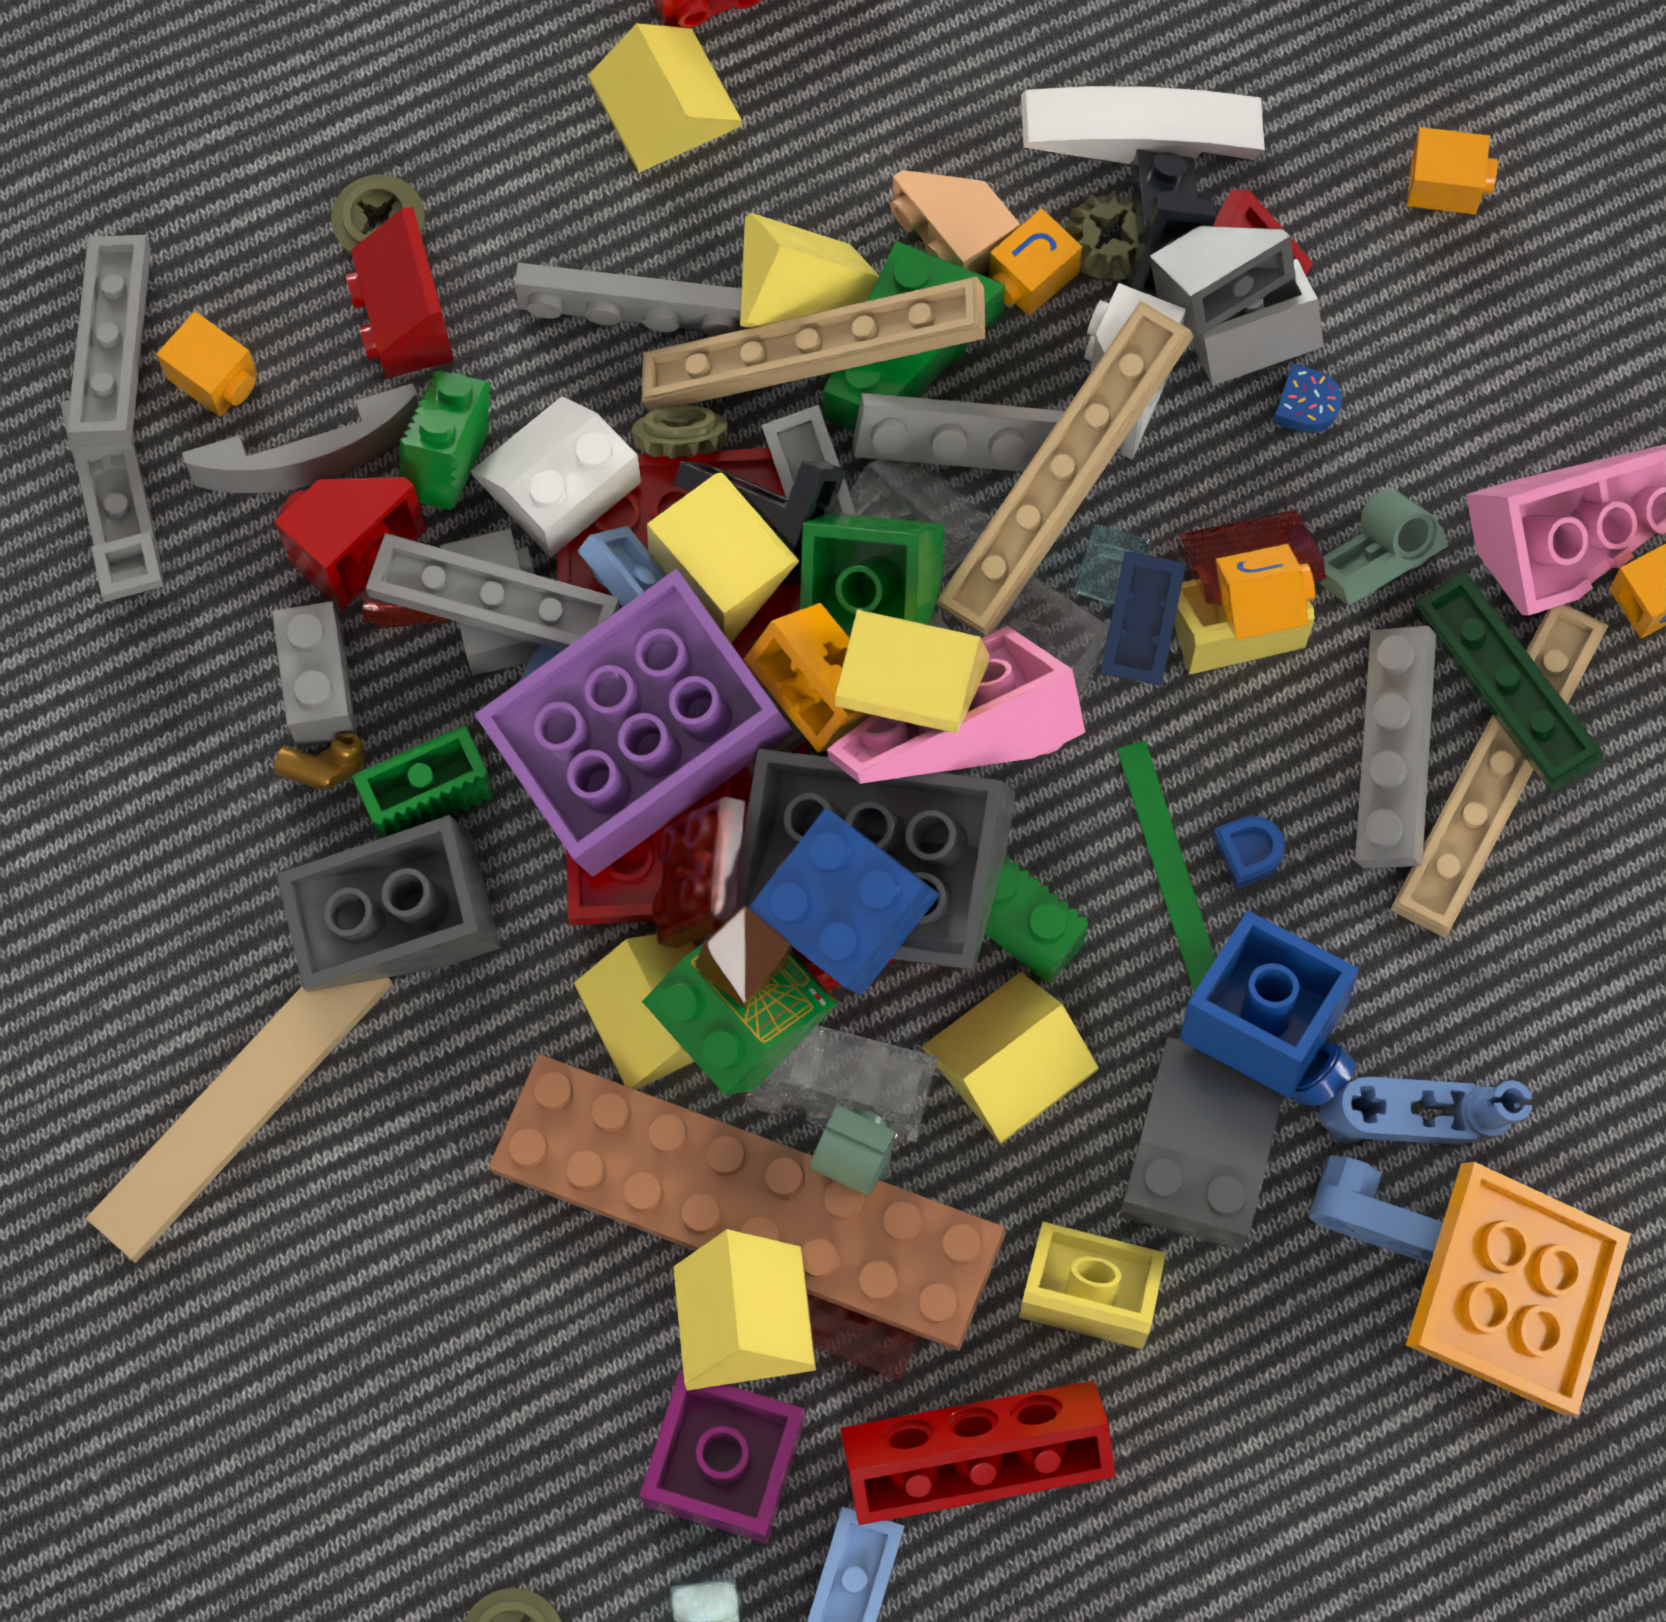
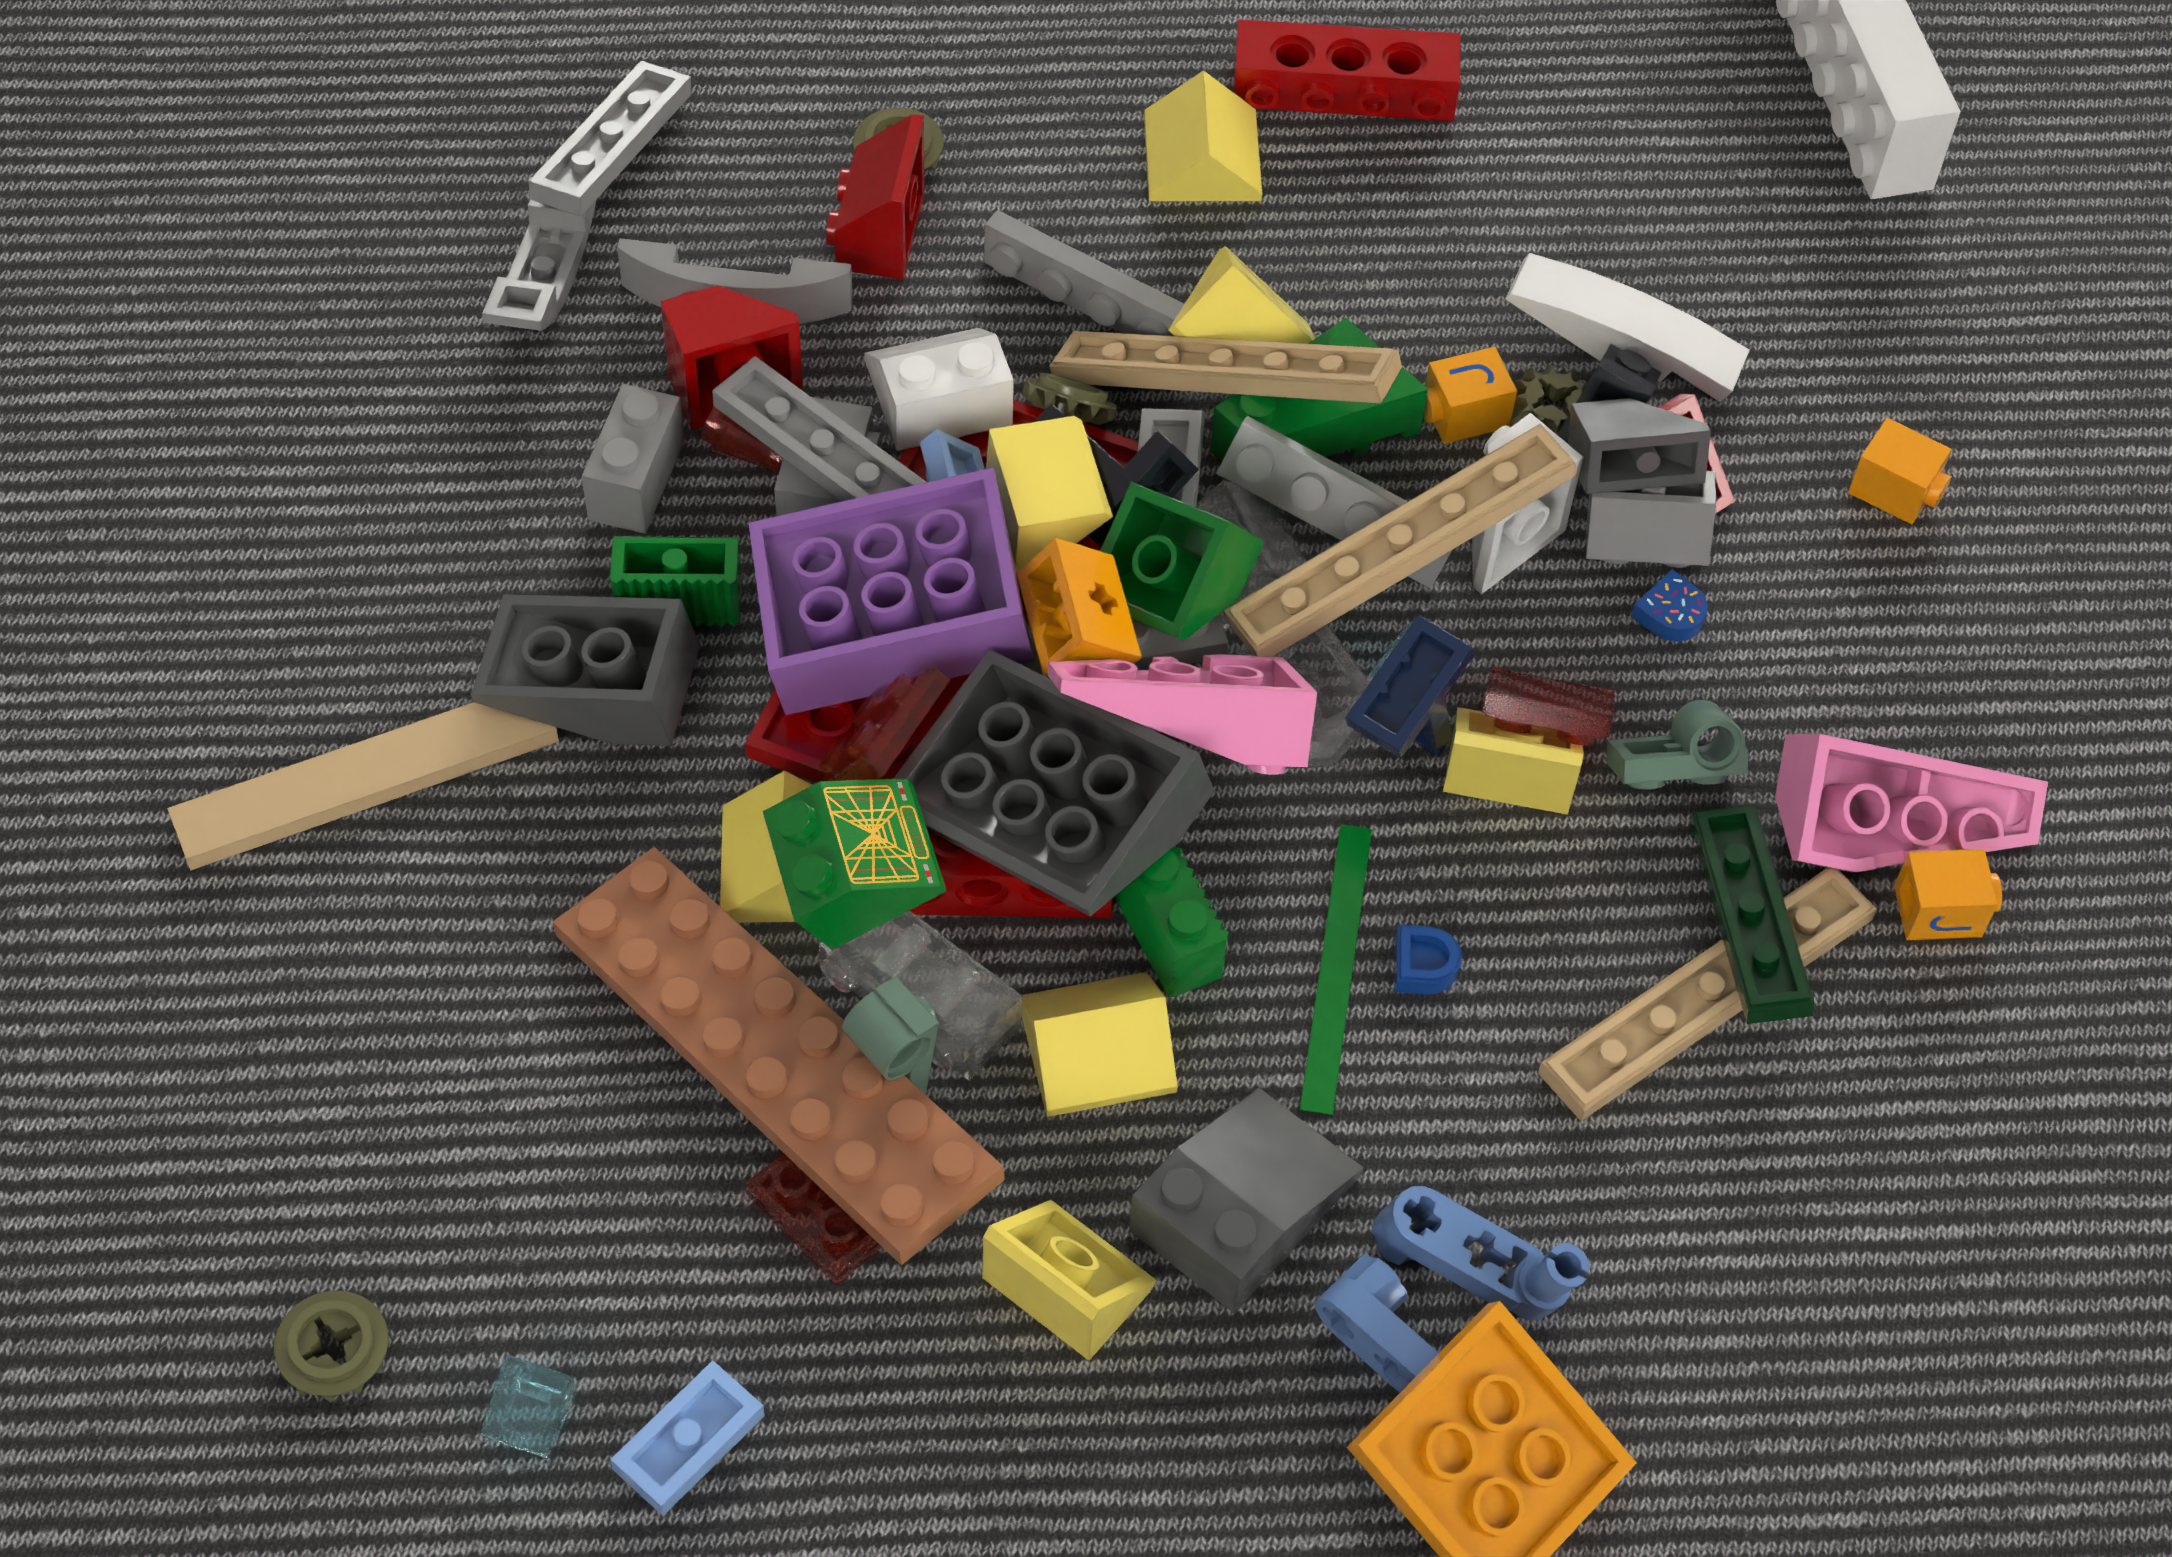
camera: 20 degrees right, 15 degrees down
(208, 365) = (685, 191): light orange brick -> none
(326, 769) = (595, 540): pearl gold arm -> none
(445, 437) = (854, 315): green brick -> none
(723, 1458) = (622, 1260): magenta brick -> none
(743, 956) = (873, 799): reddish brown slope -> none
(743, 1311) = (711, 1123): light yellow slope -> none
(843, 902) = (994, 796): blue brick -> none
(911, 671) = (1164, 623): light yellow slope -> none
(953, 216) = (1410, 322): light nougat slope -> none
(977, 1452) = (868, 1366): red brick -> none
(1264, 591) = (1541, 714): light orange brick -> none
(1268, 1004) = (1369, 1087): blue brick -> none
(1325, 1076) = (1390, 1180): blue tile -> none
(1396, 747) = (1611, 928): light grey plate -> none

